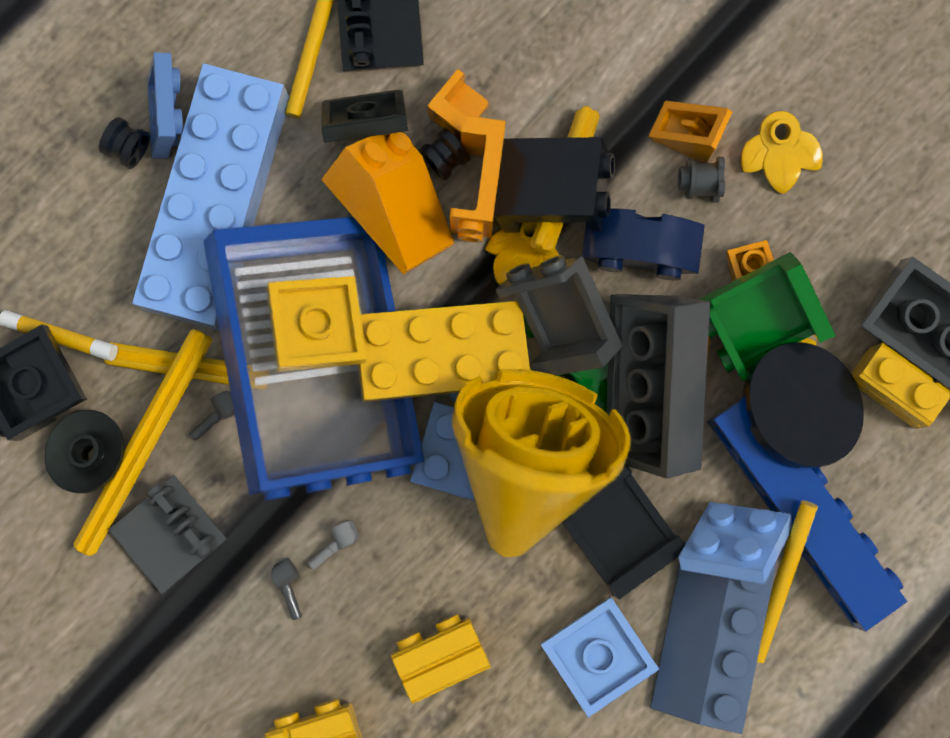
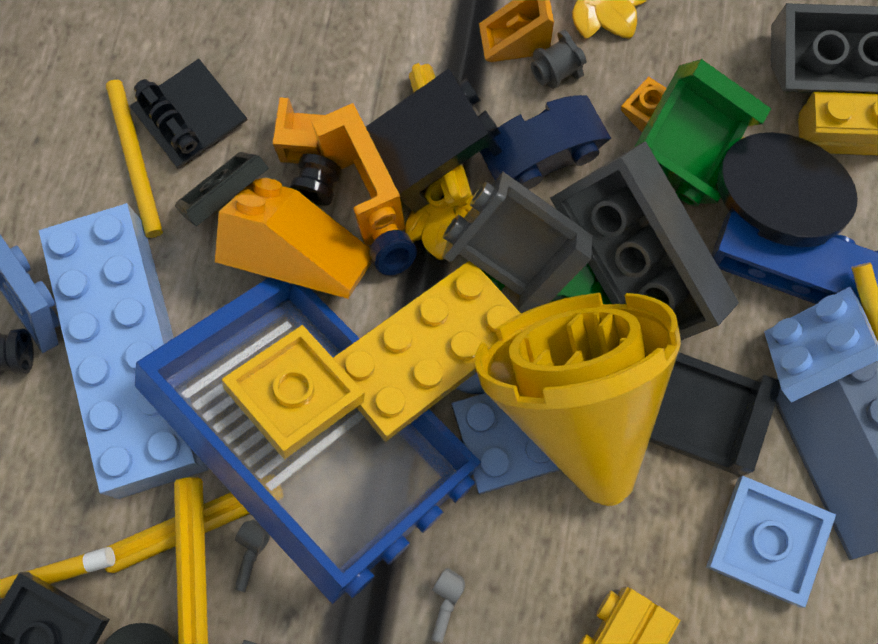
camera: 25 degrees left, 10 degrees down
(466, 254) = (392, 252): none -> dark blue tile

